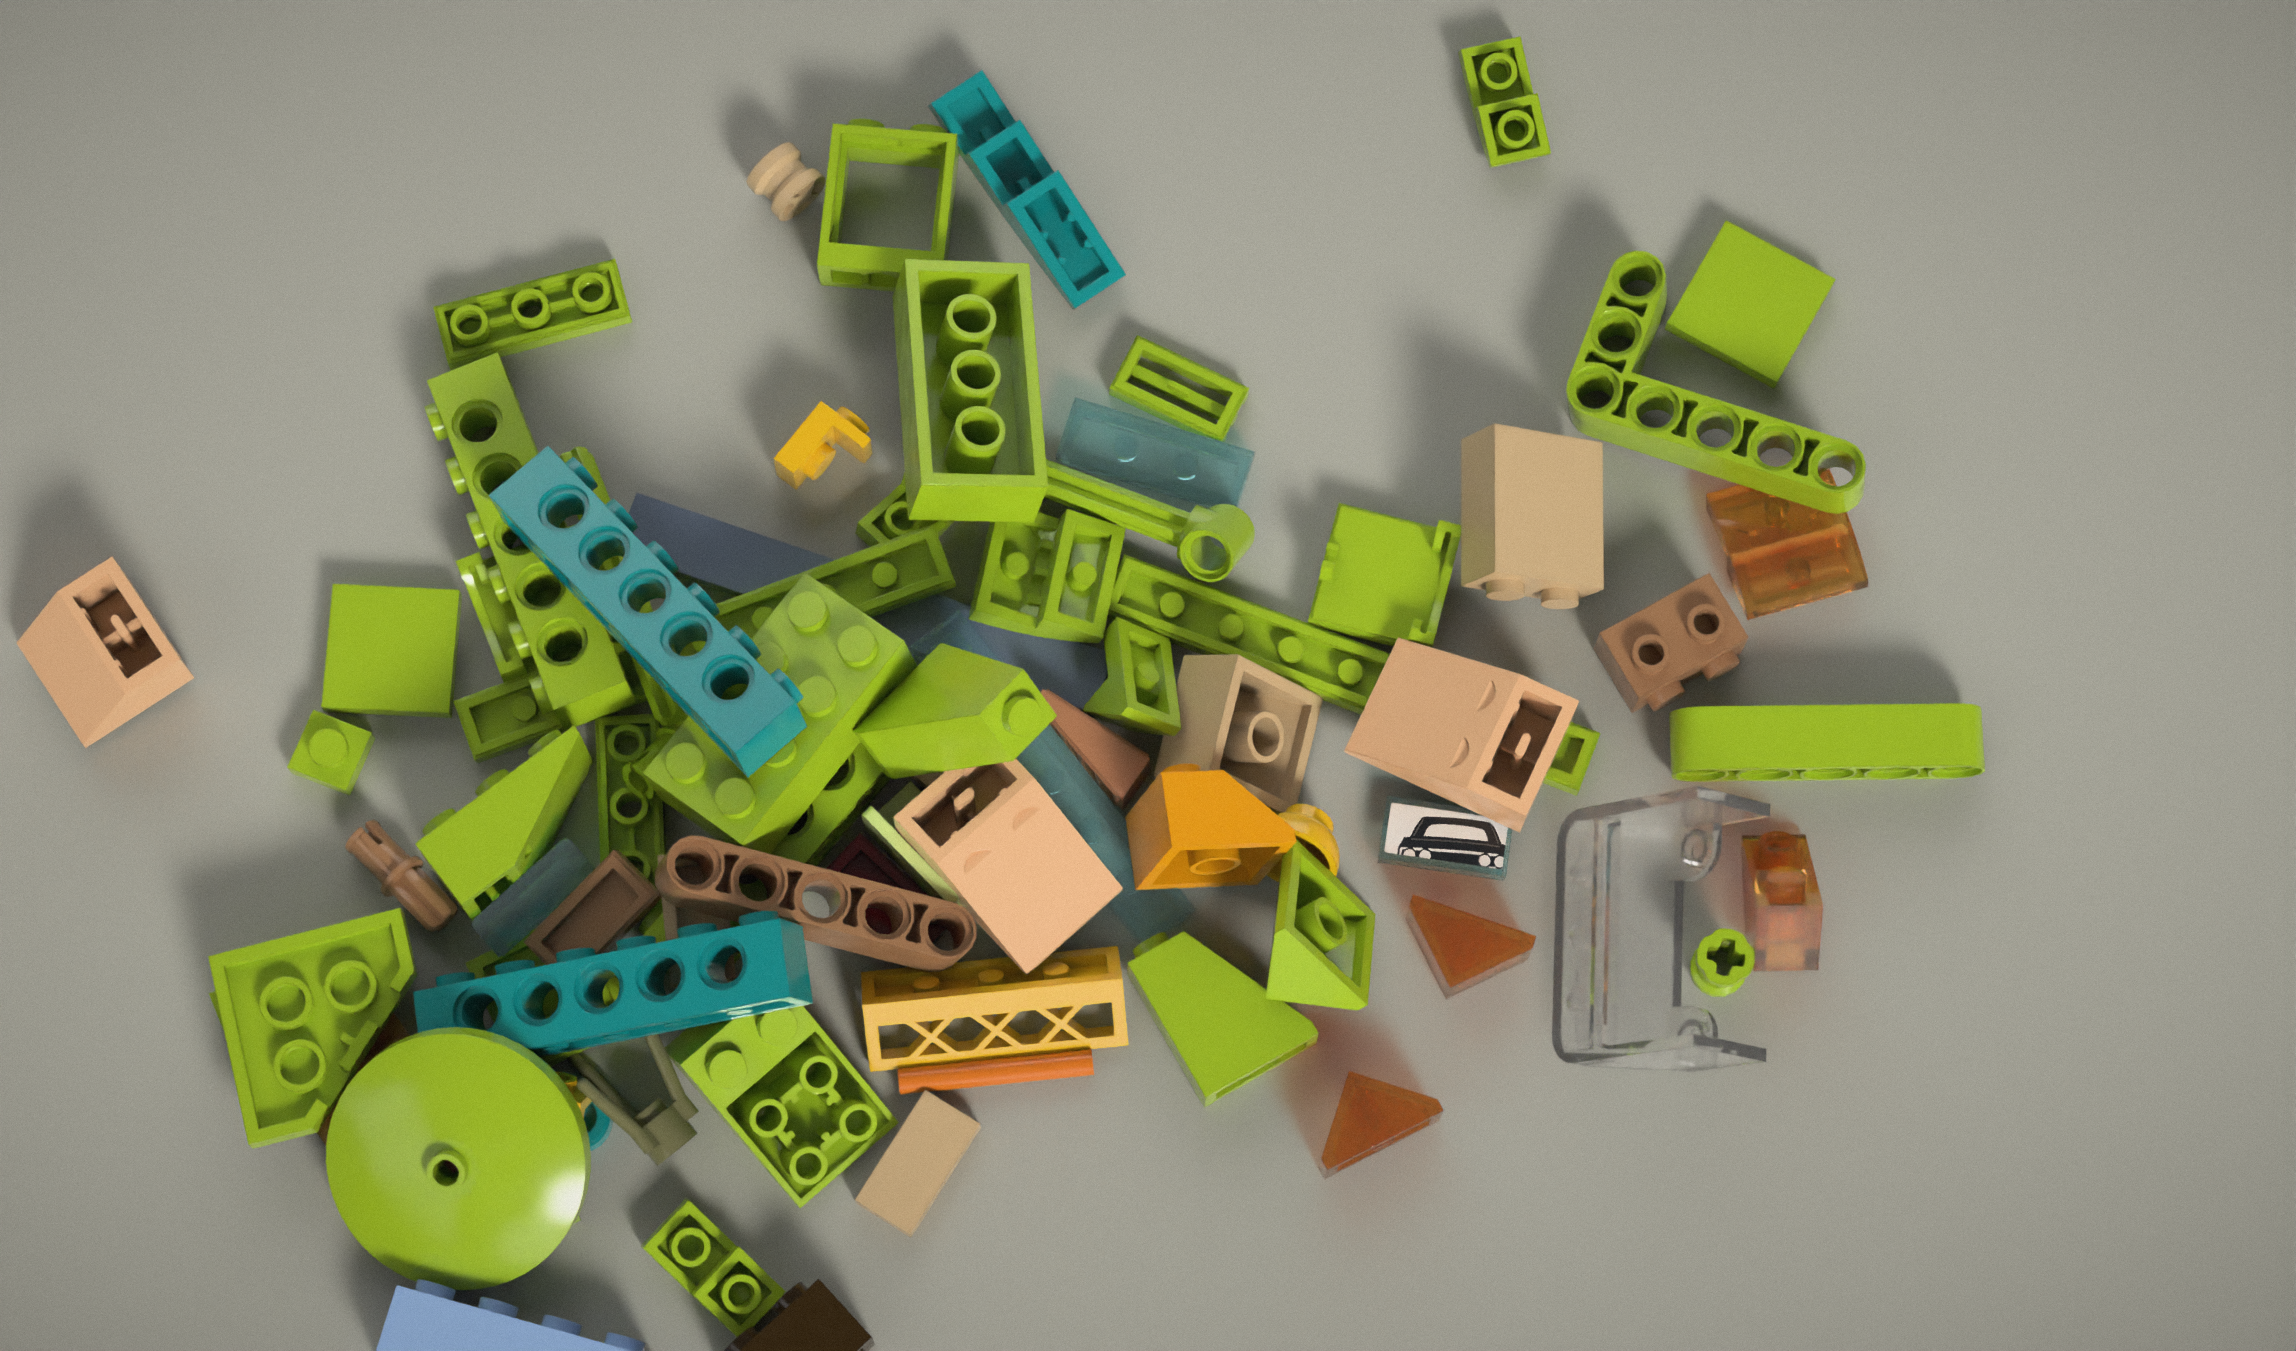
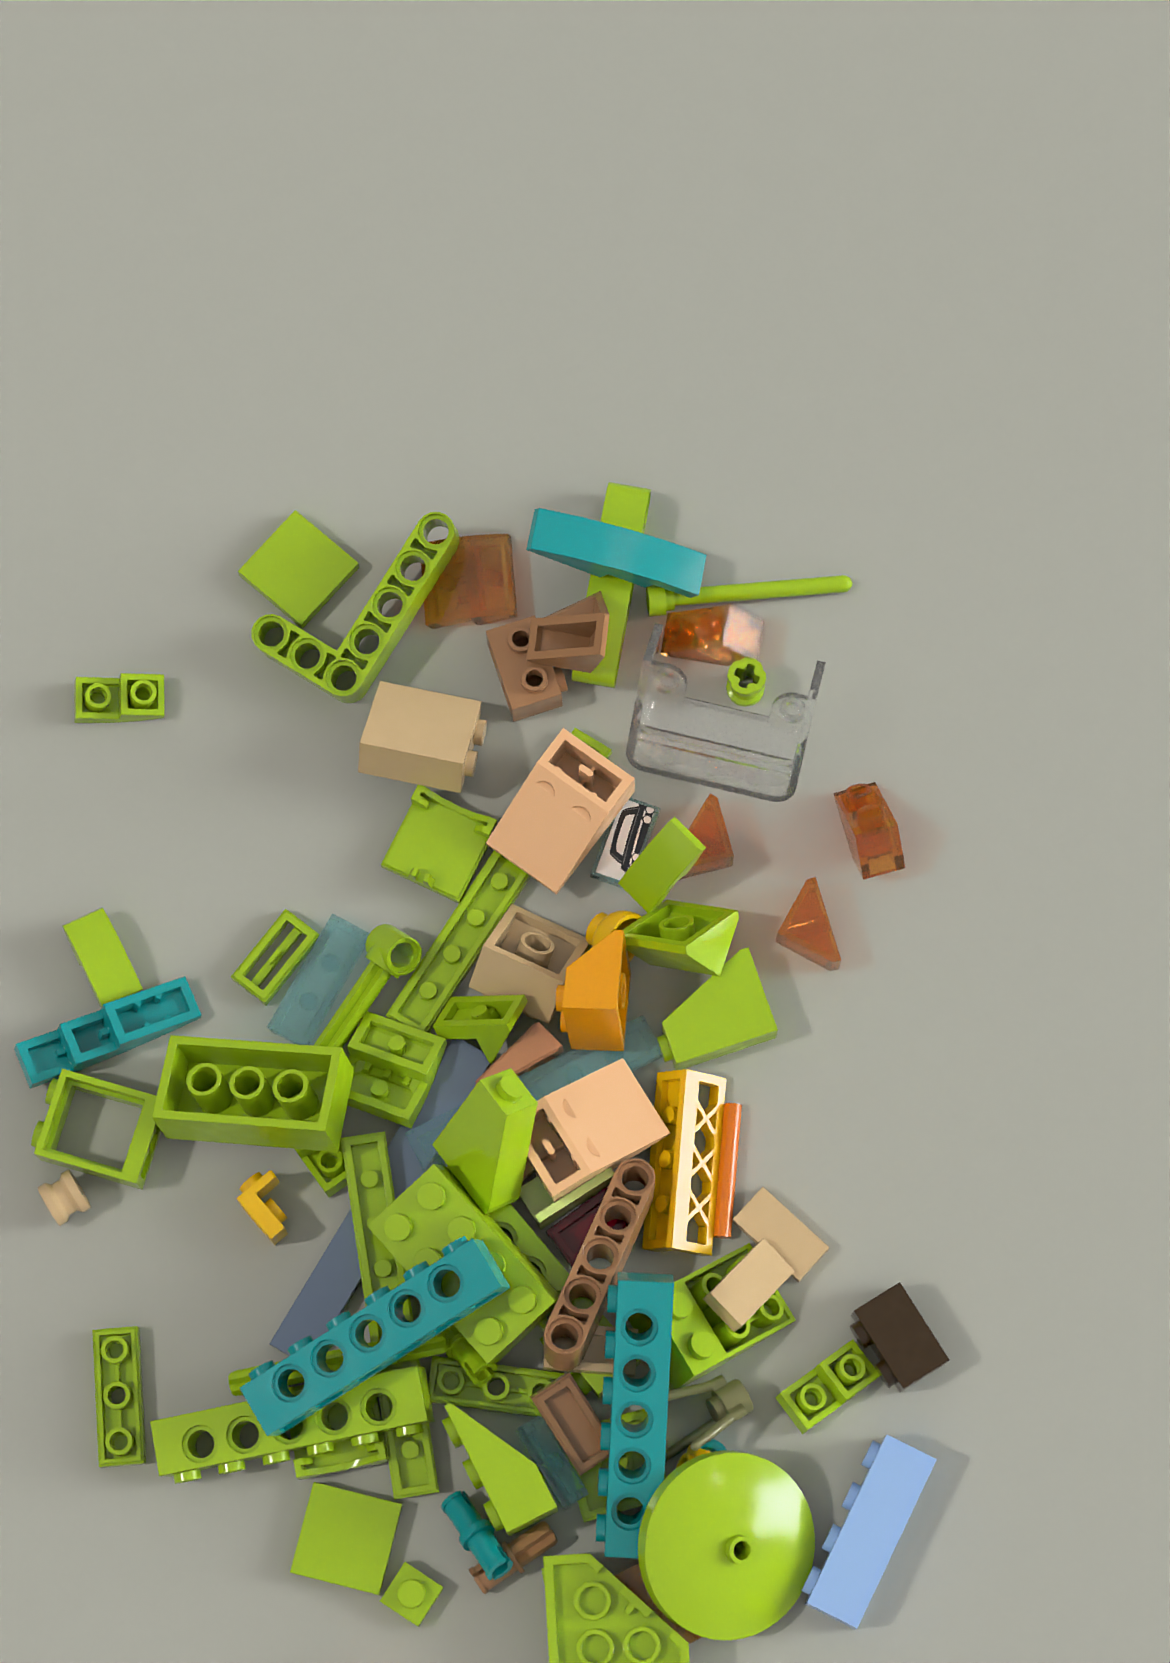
camera: 75 degrees left, 0 degrees up
(404, 828) = (477, 1535): none -> teal pin
(829, 1124) = (748, 1285): none -> tan tile
(1128, 158) = (102, 956): none -> lime slope
(1412, 885) = (661, 865): none -> lime slope
(1536, 1182) = (870, 830): none -> clear orange slope
(1725, 686) = (572, 636): none -> medium nougat slope
(1824, 823) = (662, 600): none -> lime piece
(1866, 730) = (616, 551): none -> teal slope

